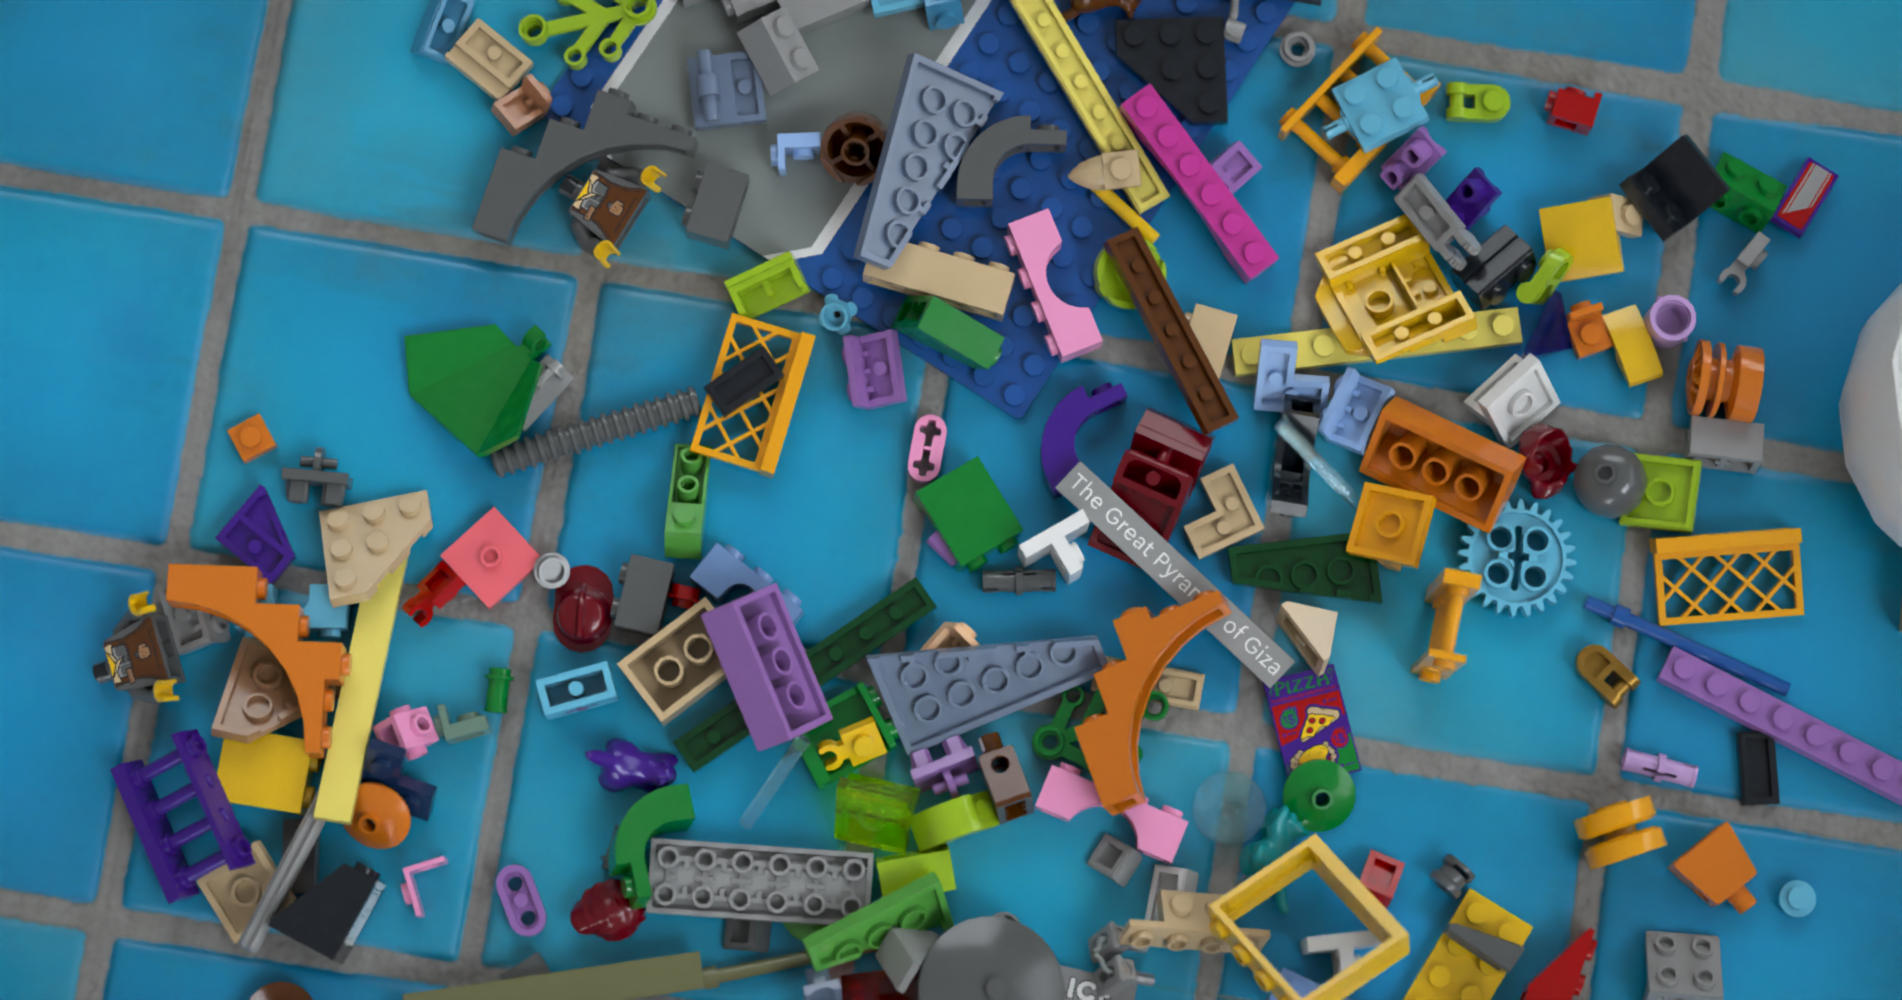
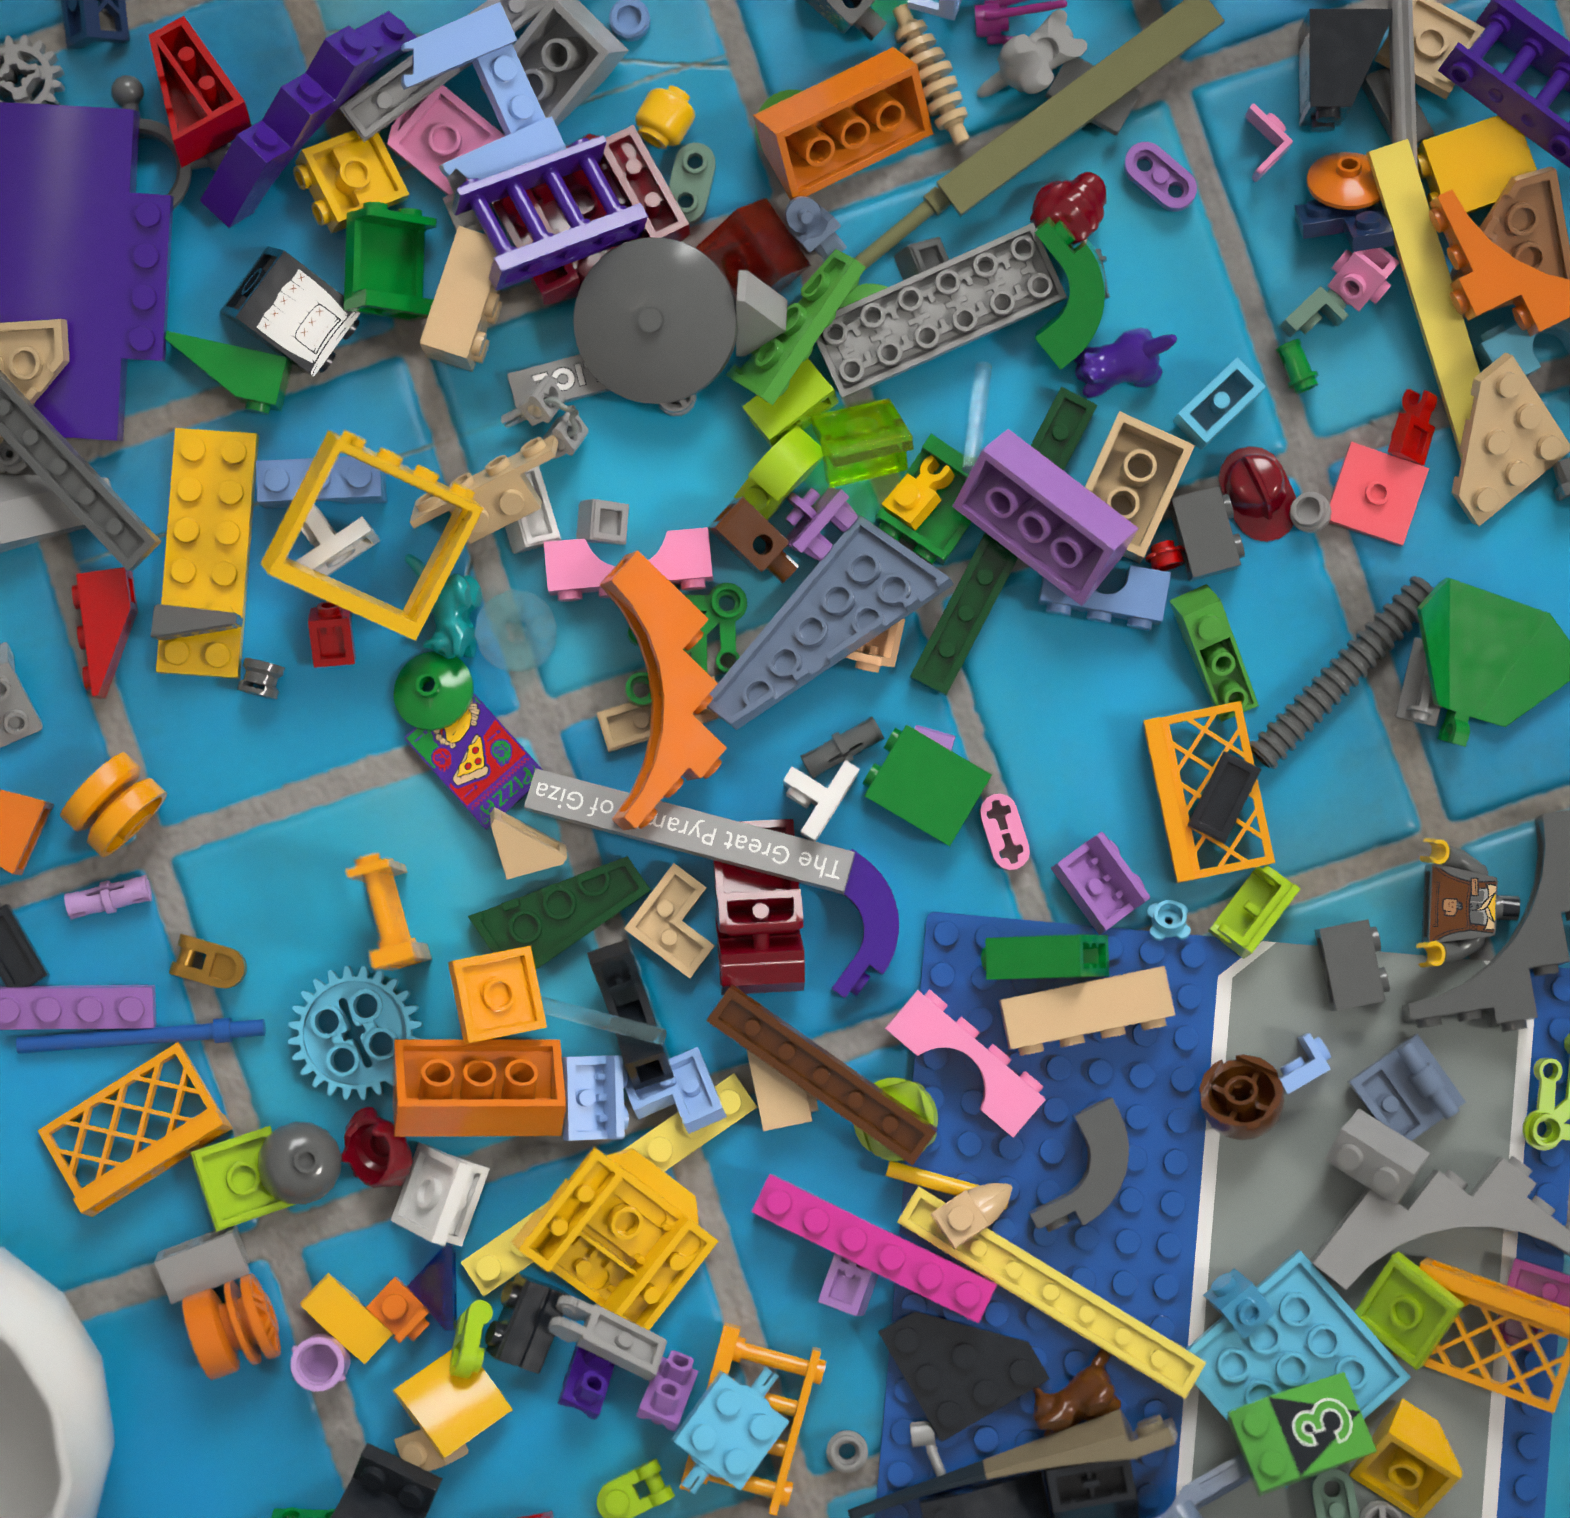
camera: 160 degrees right, 5 degrees up
(924, 143) = (1175, 1138): sand blue wing -> none
(1750, 256) = (271, 1477): light grey plate -> none

